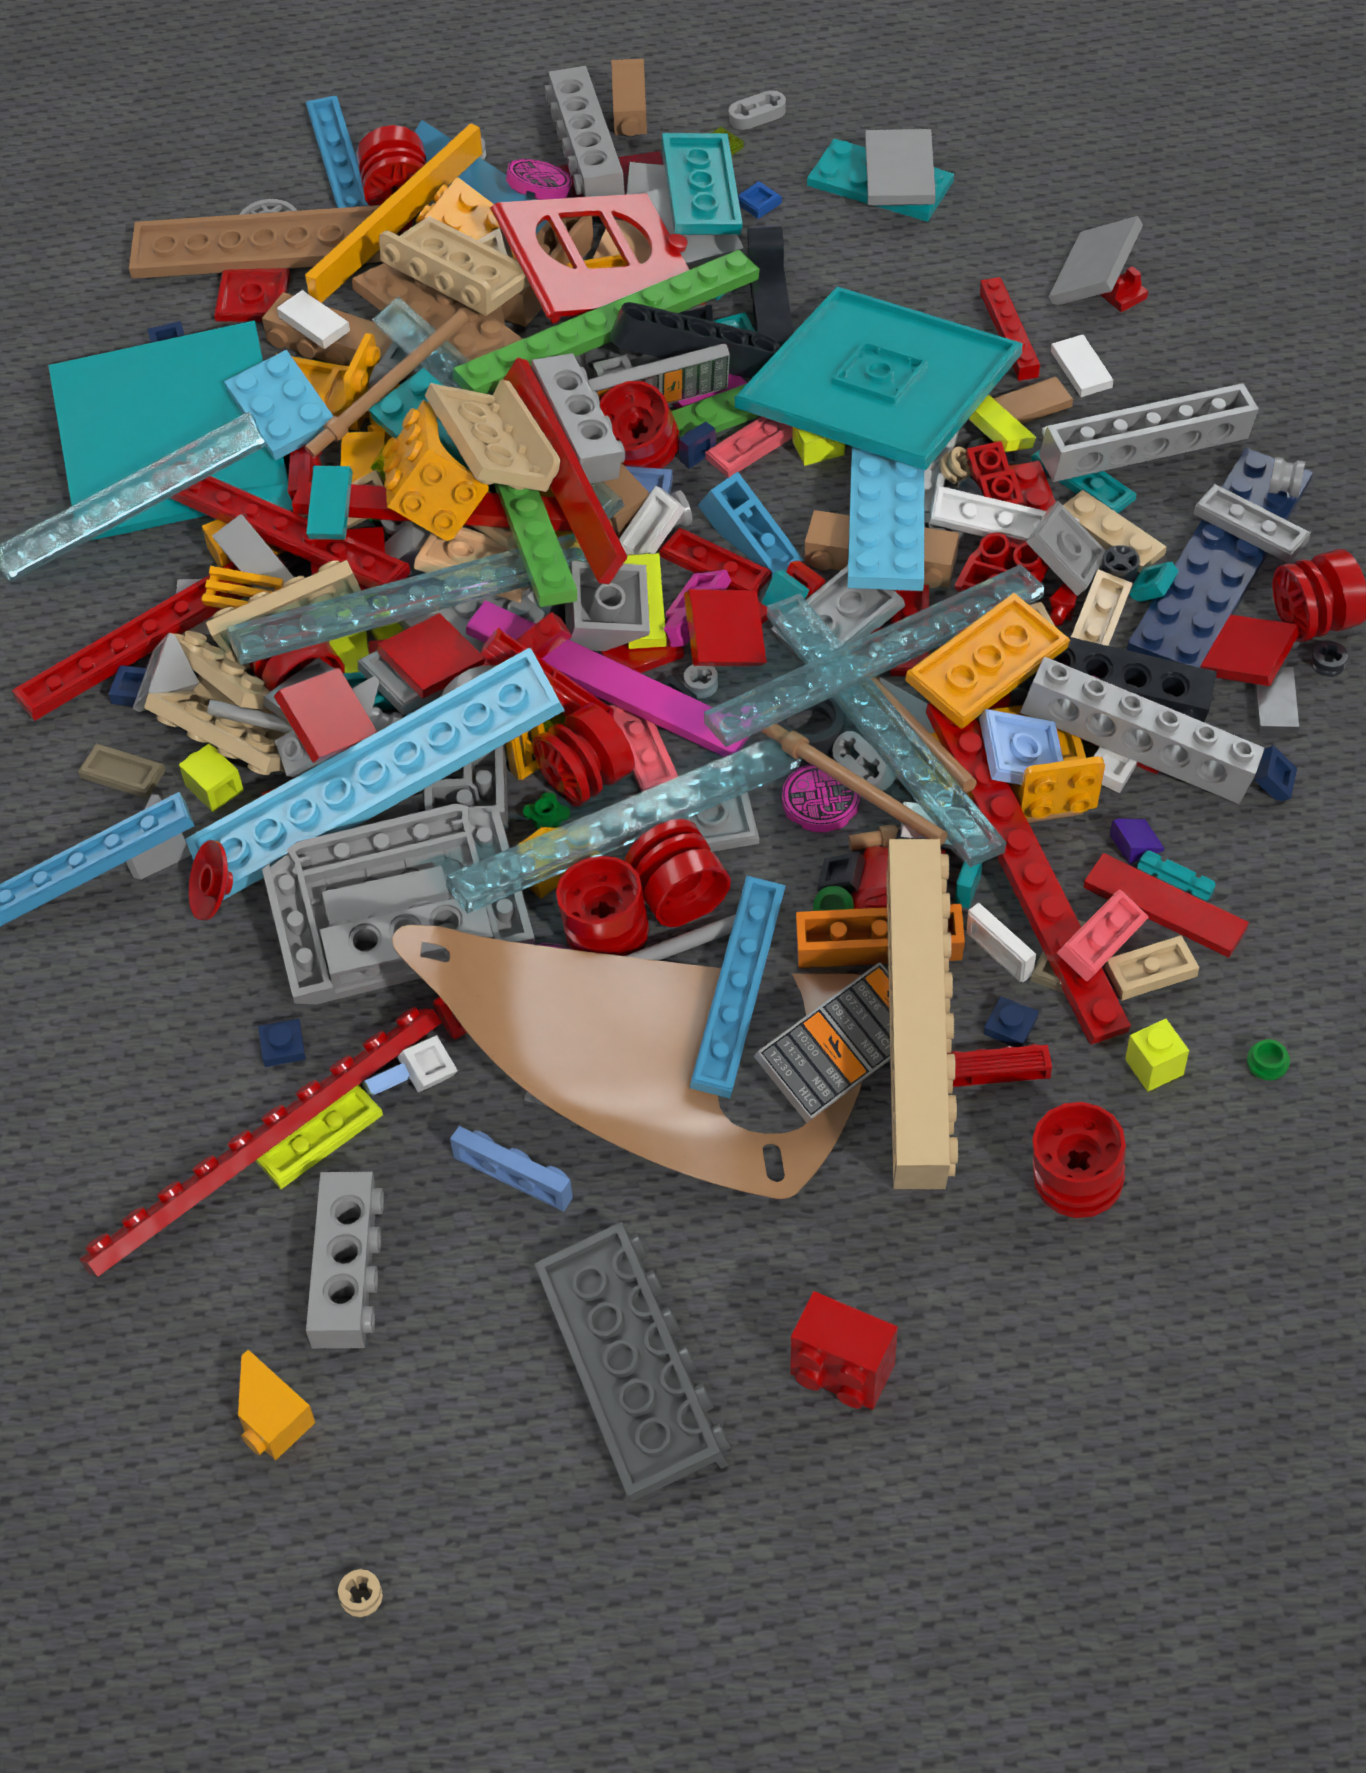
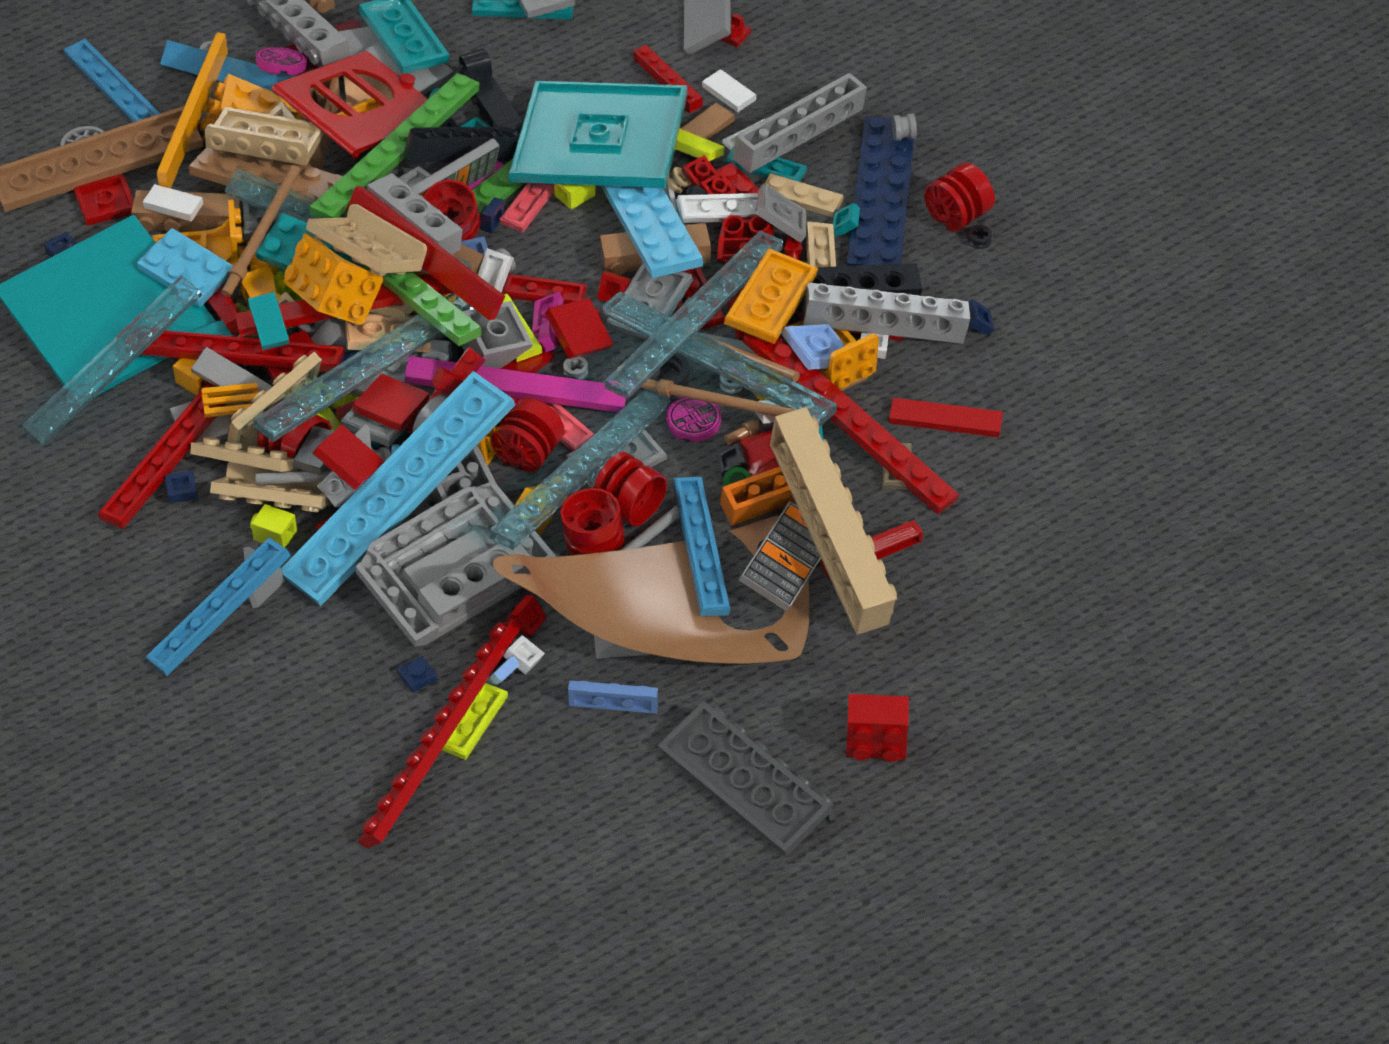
camera: 25 degrees left, 5 degrees down
(121, 771) = (204, 543): dark tan tile -> none
(166, 672) = (203, 468): light grey slope -> none
(209, 880) = (318, 587): red dish -> none
(269, 1409) = (535, 878): light orange slope -> none
(339, 1198) = (541, 801): light grey brick -> none
(352, 1579) = (656, 955): tan bush -> none
(388, 160) = (165, 79): red wheel -> none
(551, 819) = (513, 486): green plate -> none
(748, 525) = (557, 259): dark azure slope -> none
(759, 200) = (446, 33): blue tile -> none
(782, 587) = (603, 293): teal tile -> none
(867, 756) = (714, 380): light grey beam -> none
(1000, 943) = (858, 470): white tile -> none
(1011, 1022) = (883, 515): dark blue plate -> none
(1082, 1139) = (966, 577): red wheel -> none
(1102, 935) = (918, 444): coral tile -> none
(1121, 562) = (819, 212): black wheel -> none
(1134, 838) = (908, 384): dark purple slope -> none
(1151, 967) = (955, 456): tan plate -> none
(1156, 1055) = (983, 505): neon yellow brick -> none
(1176, 875) = (945, 397): teal axle -> none
(1250, 649) = (928, 244): red tile -> none
(1252, 523) = (893, 163): light grey tile -> none
(1268, 1060) = (1051, 488): green plate -> none
(1278, 704) = (957, 272): flat silver tile -> none

